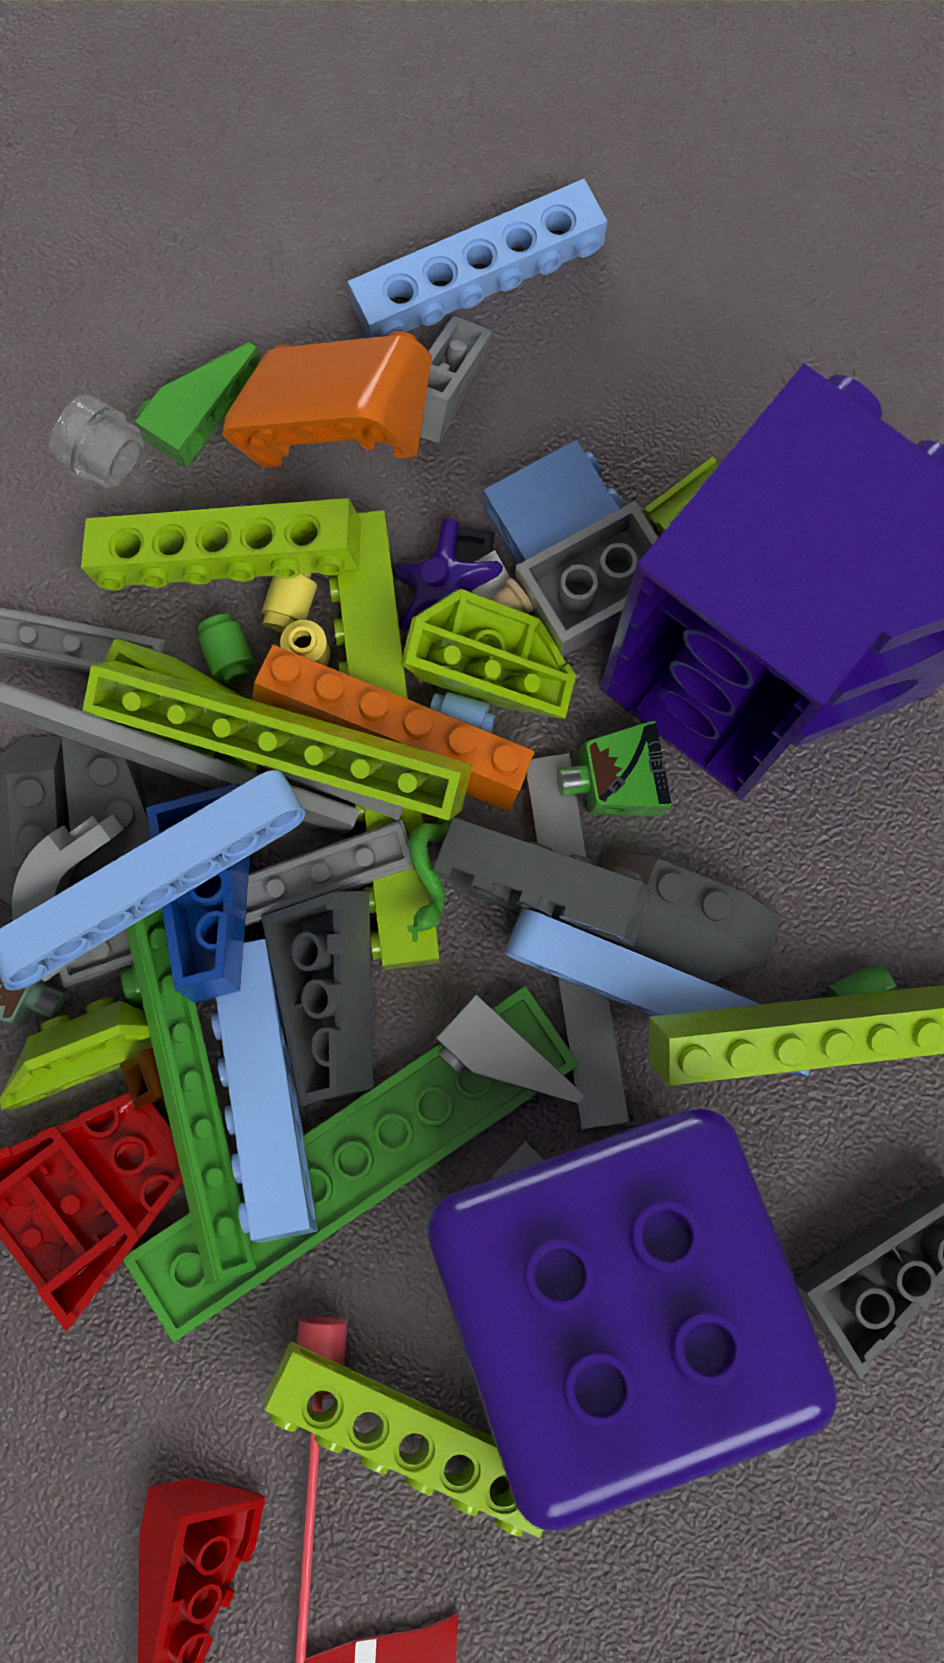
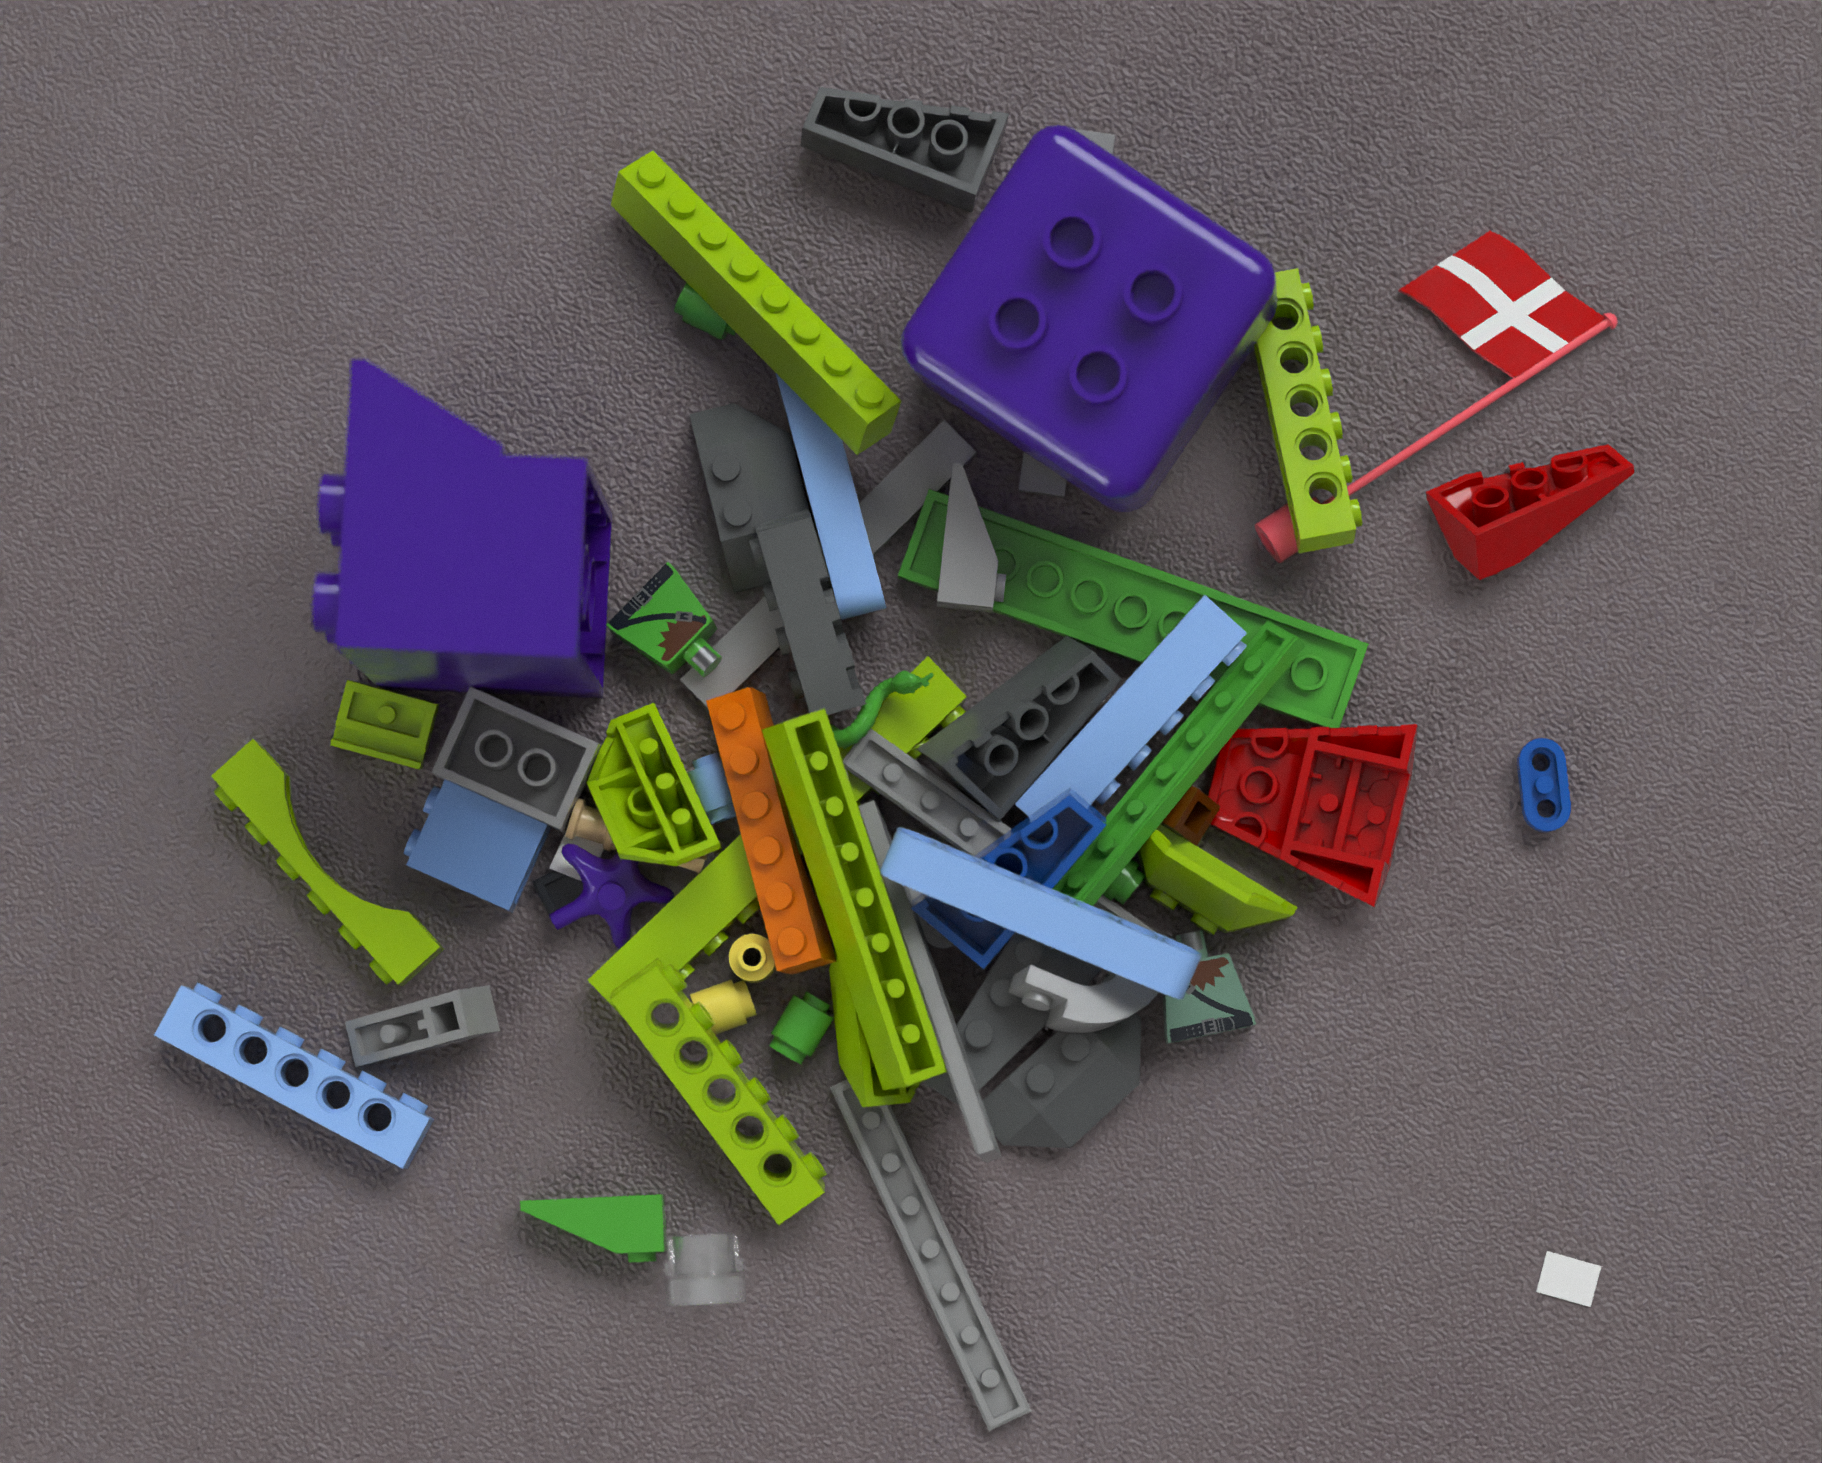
camera: 125 degrees left, 5 degrees up
(332, 393) = (525, 1090): orange windscreen -> none
(708, 382) = (263, 793): none -> lime arch

